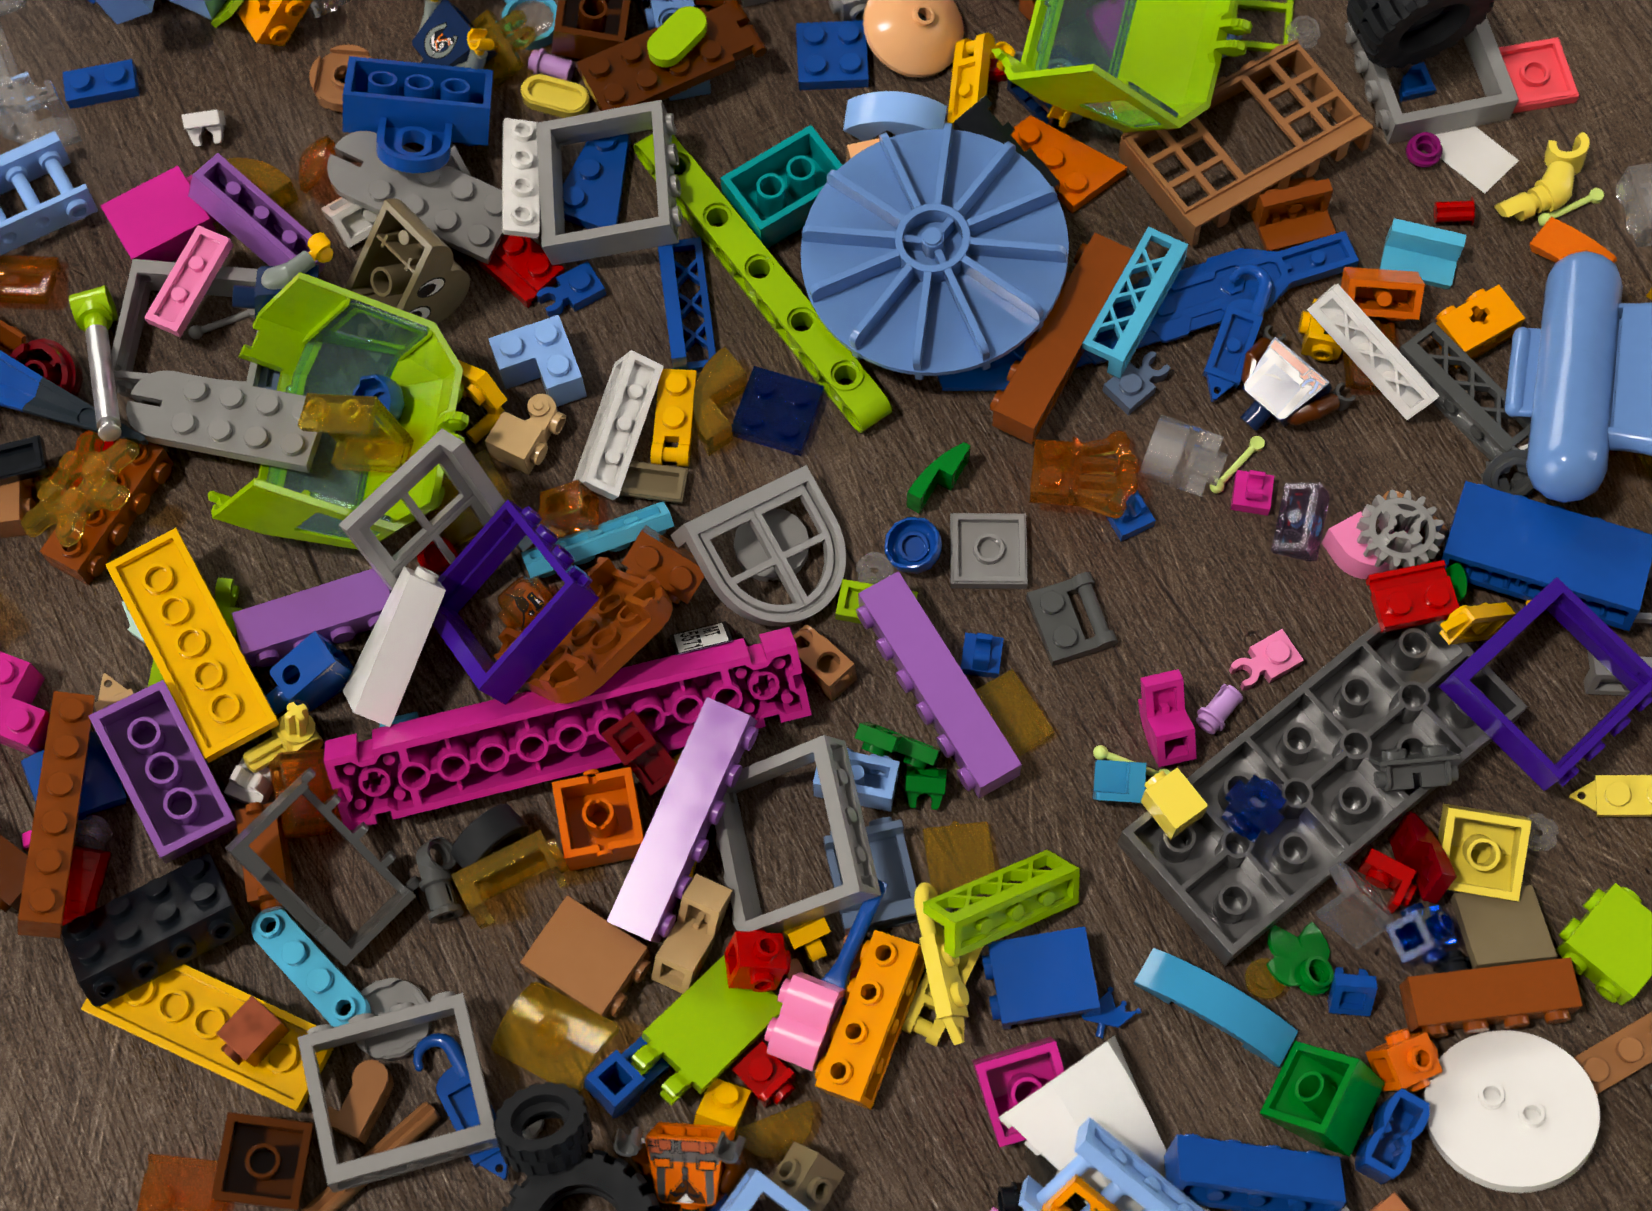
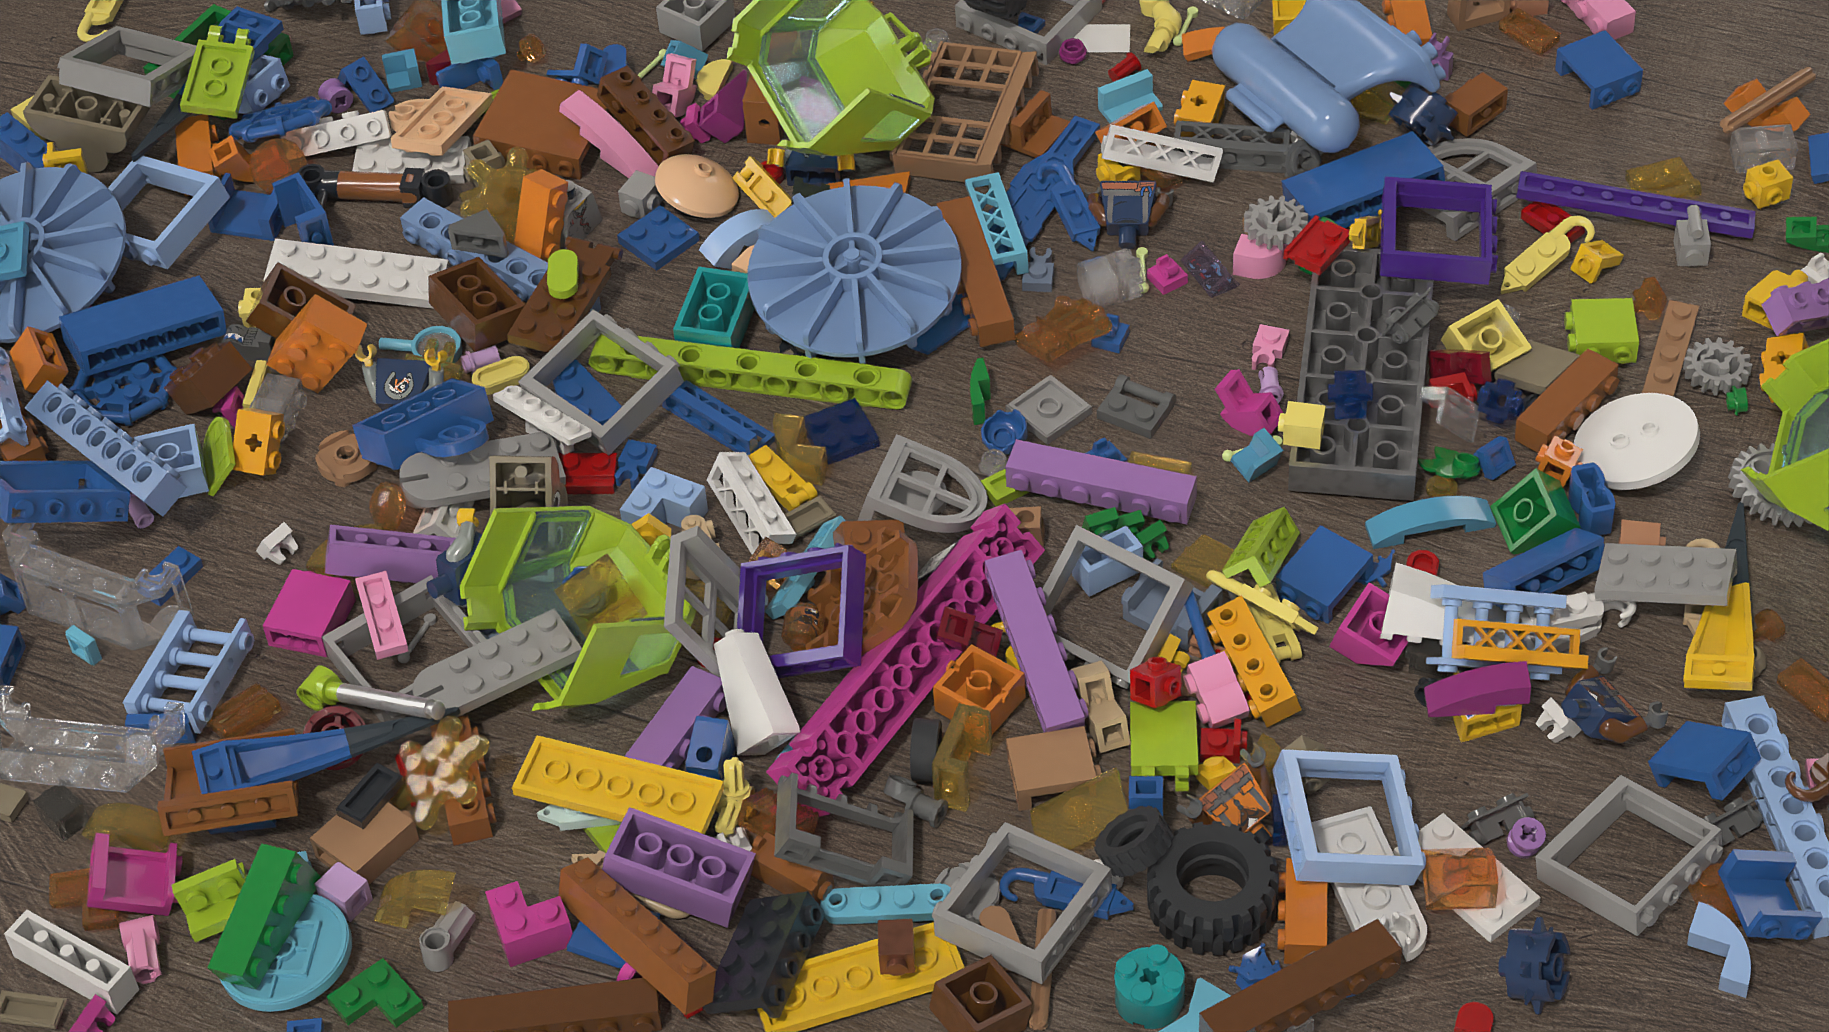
camera: 40 degrees left, 20 degrees down
(1155, 1050) = (1424, 561): none -> red tile

